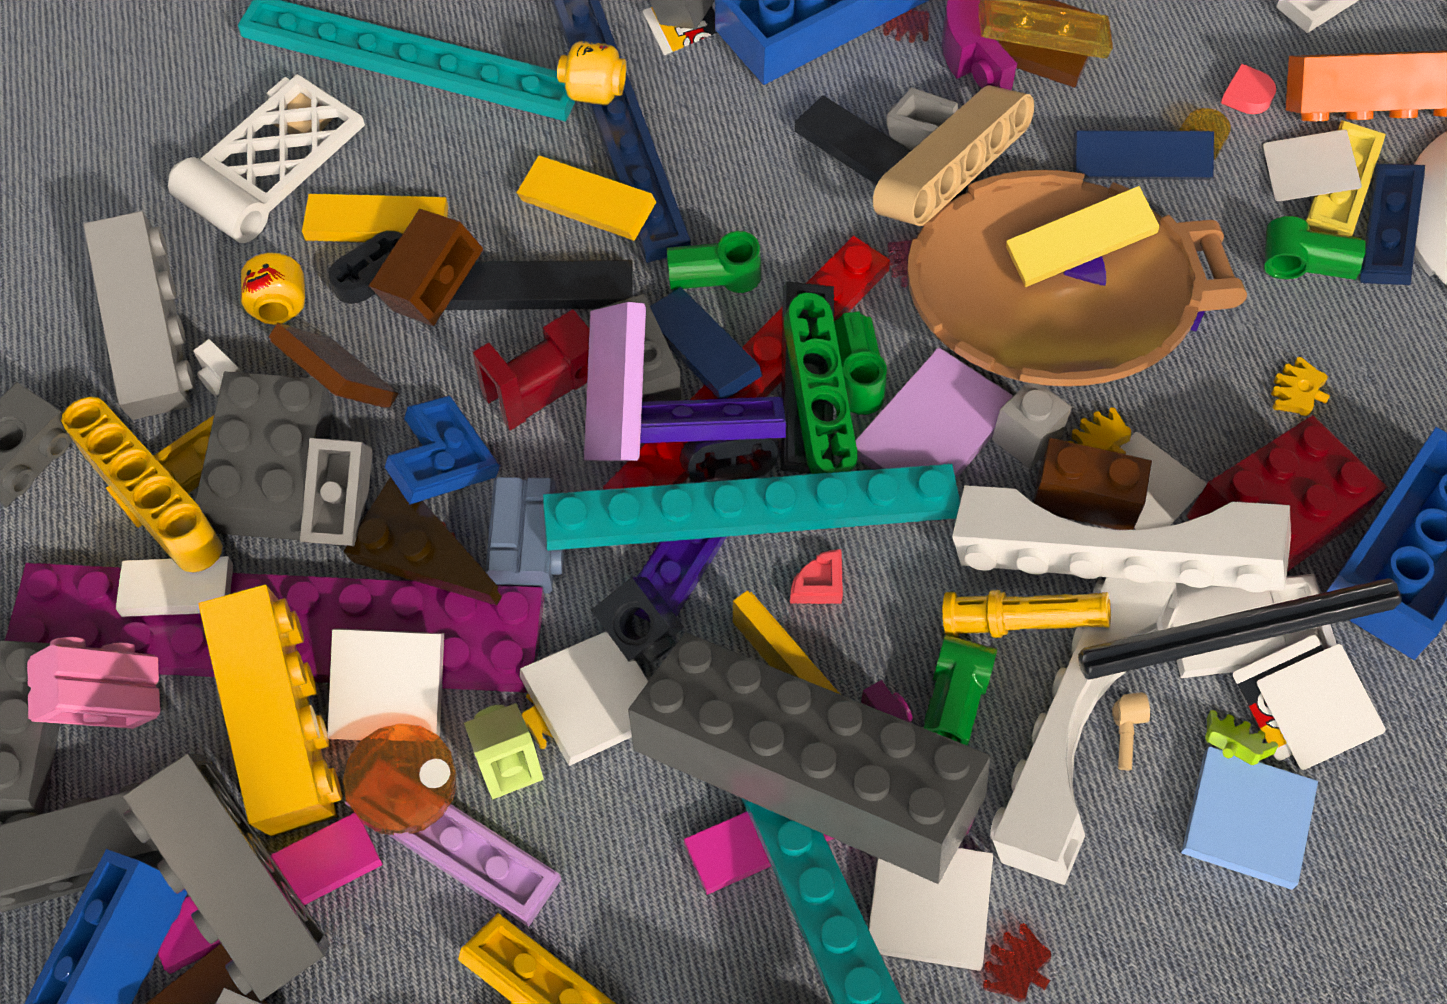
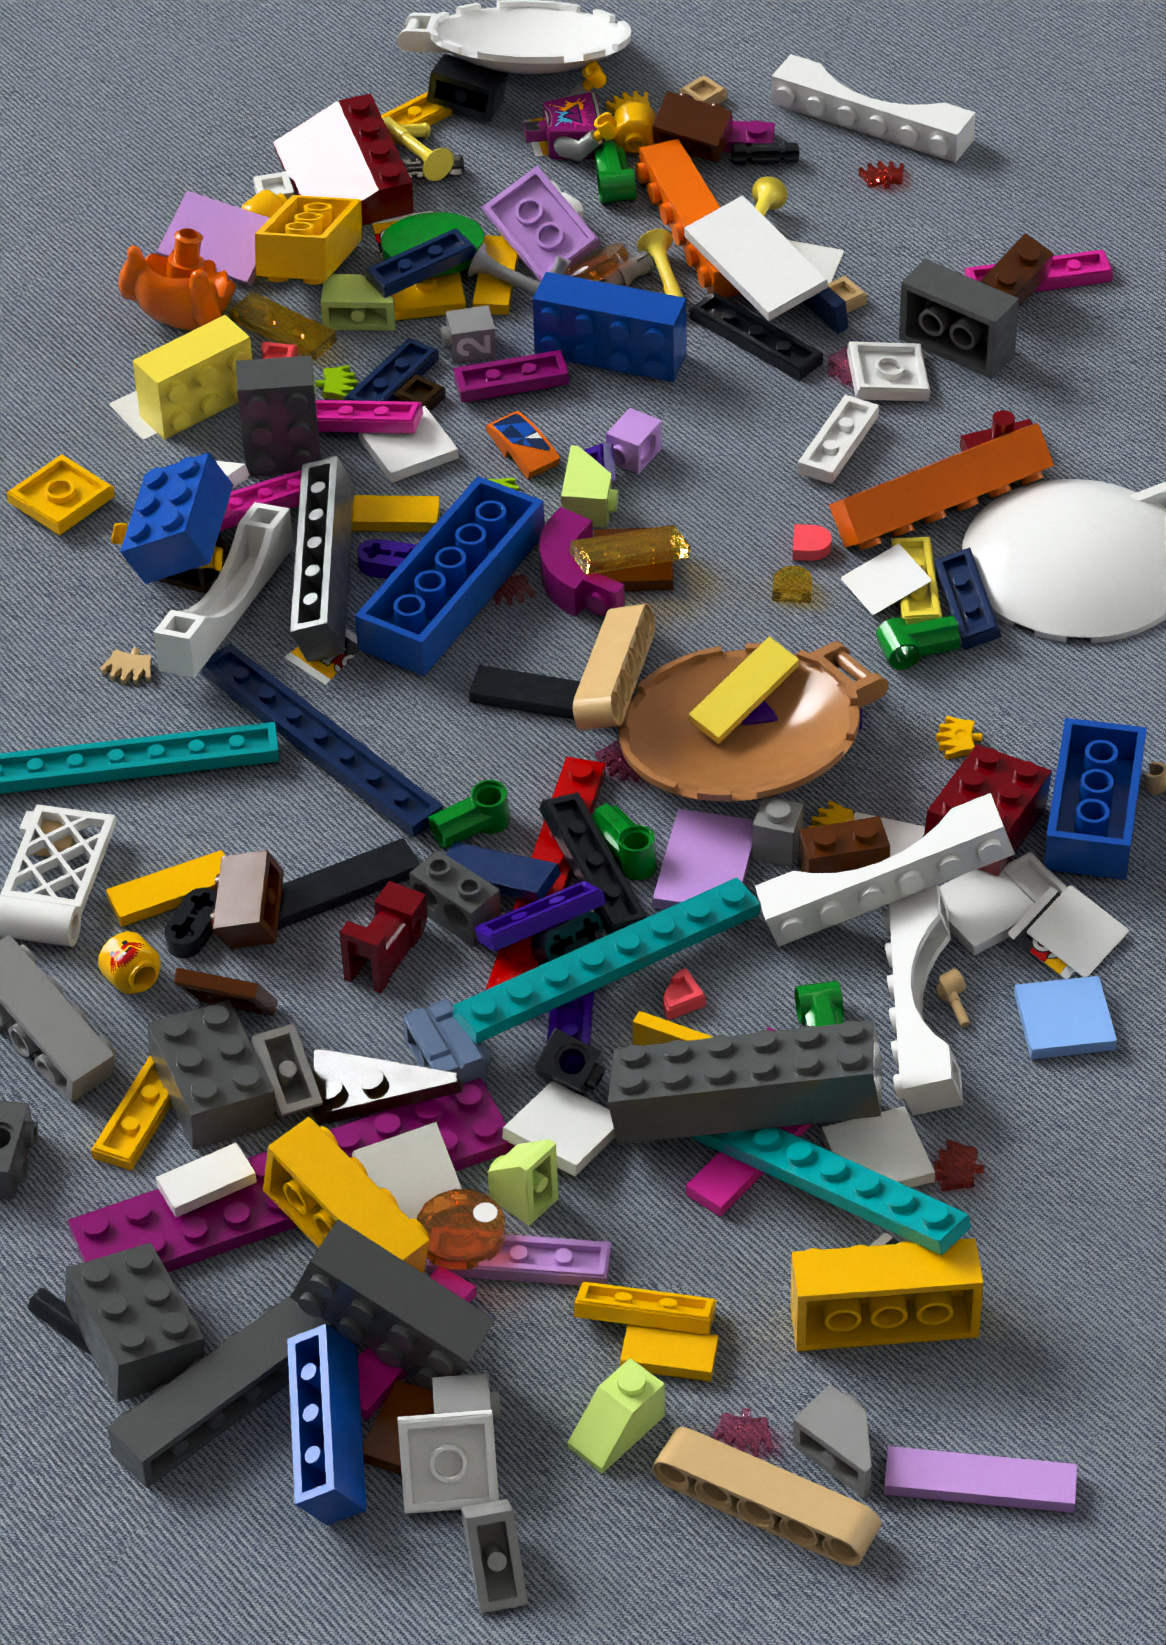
camera: 25 degrees left, 15 degrees down
(92, 685) = (197, 1257): bright pink brick -> none
(143, 484) = (133, 1122): yellow beam -> none
(213, 365) = (128, 1035): white plate -> none
(449, 454) = (346, 1021): blue tile -> none
(586, 197) = (339, 806): yellow tile -> none
(592, 73) = (292, 711): yellow head -> none
(615, 383) = (460, 913): lavender tile -> none
(813, 387) = (603, 865): green beam -> none
(917, 117) = (568, 653): light grey window -> none
(1000, 613) = (825, 958): yellow pin -> none
(1144, 154) = (756, 617): dark blue tile -> none
(1237, 740) = (1032, 973): lime piece -> none
(1239, 628) = (995, 893): black axle -> none

